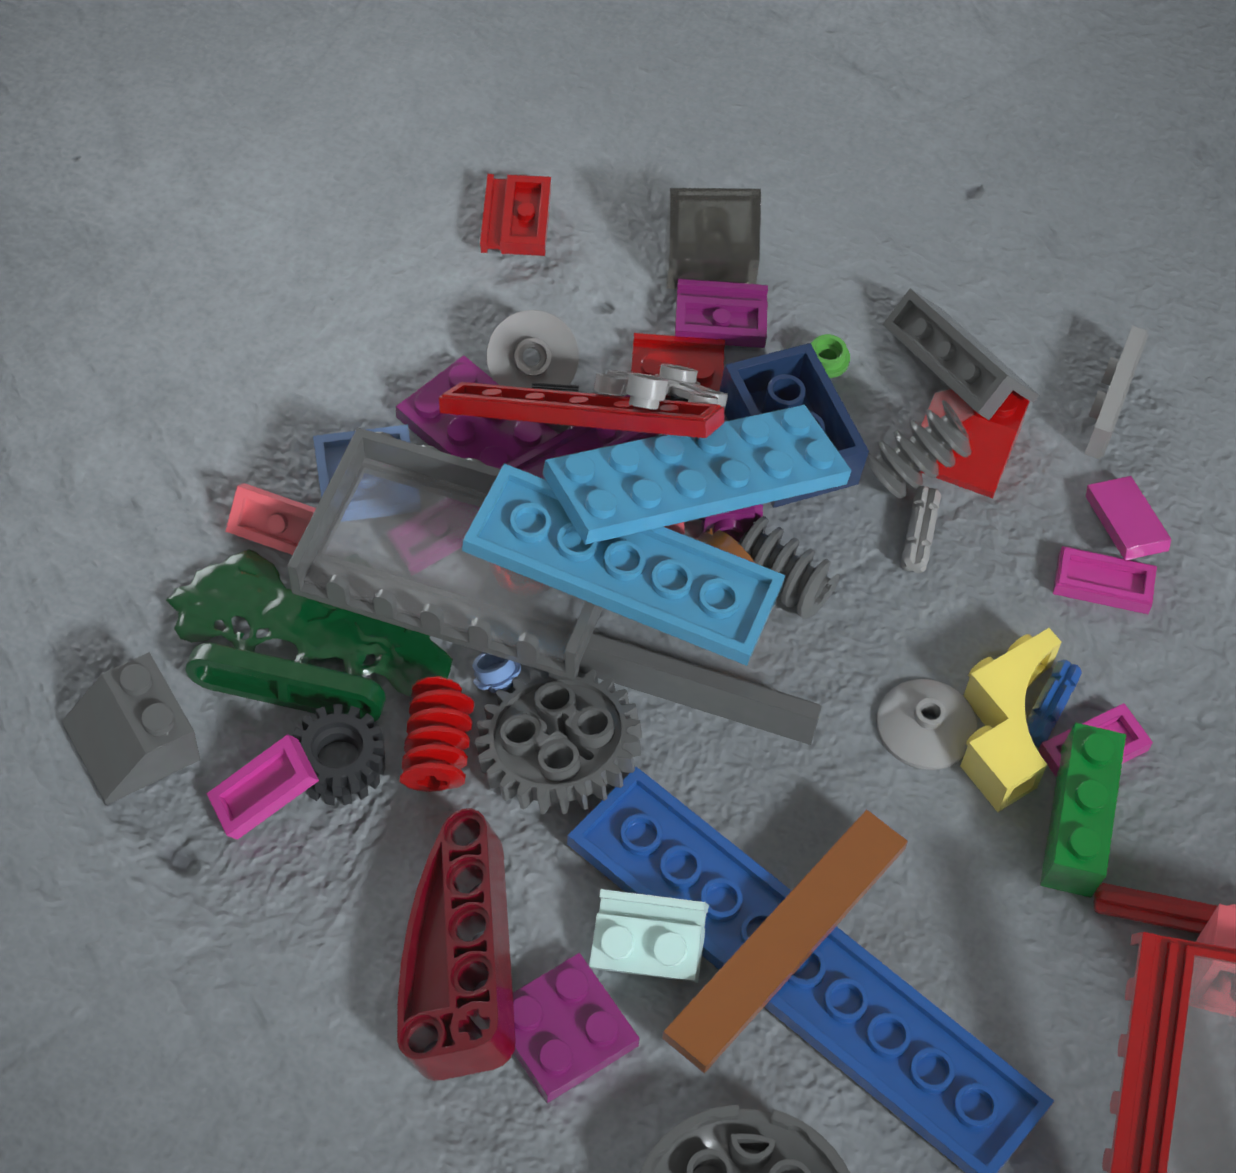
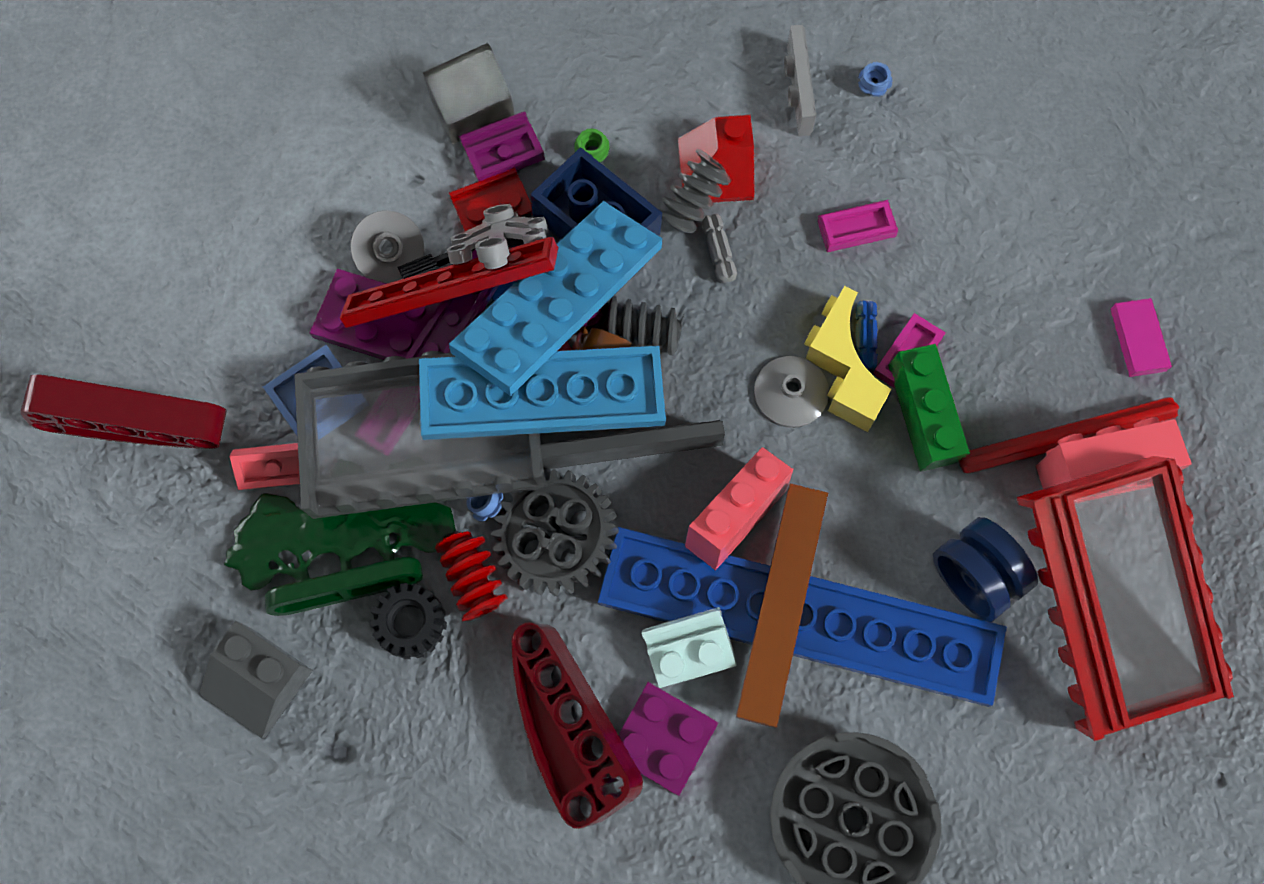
camera: 20 degrees left, 15 degrees up
(144, 391) = (120, 414): none -> dark red beam
(262, 787) = (369, 675): dark pink tile -> none
(516, 214) = (317, 138): red plate -> none
(788, 808) = (738, 508): none -> coral brick
(955, 354) = (683, 106): dark grey panel -> none
(1058, 1014) = (985, 568): none -> dark blue wheel
(1128, 518) = (852, 173): dark pink tile -> none
(1210, 430) = (879, 73): none -> medium blue plate

